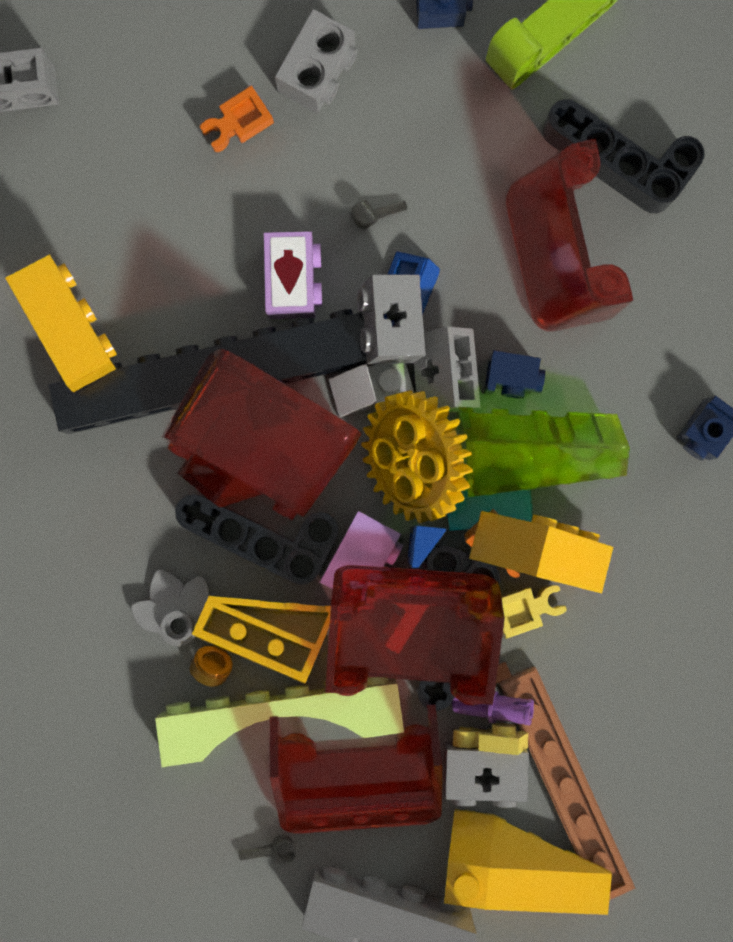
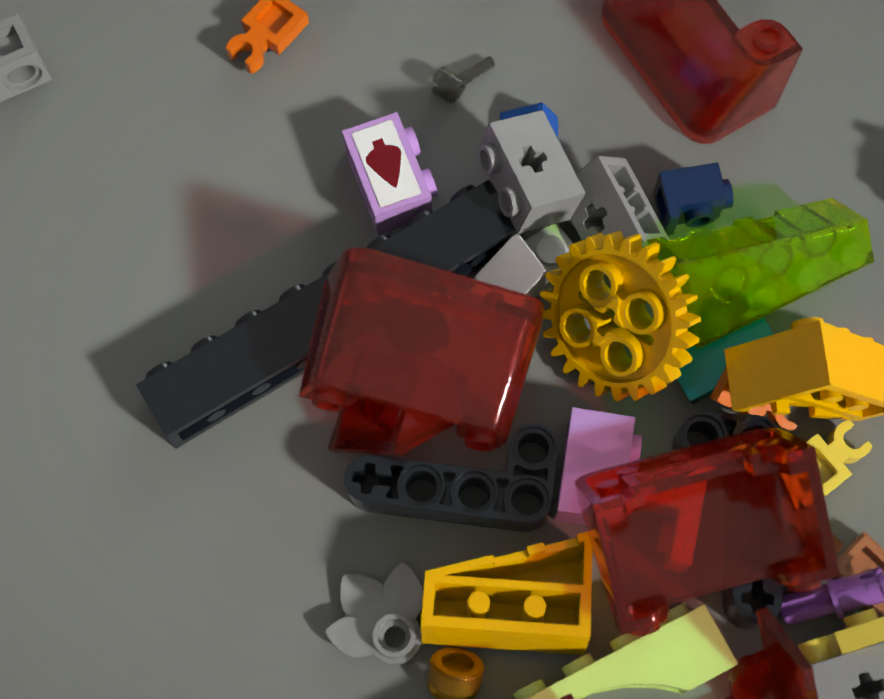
camera: 15 degrees left, 15 degrees down
(62, 322) = (134, 300): yellow wedge -> none
(421, 543) = (664, 415): blue slope -> none

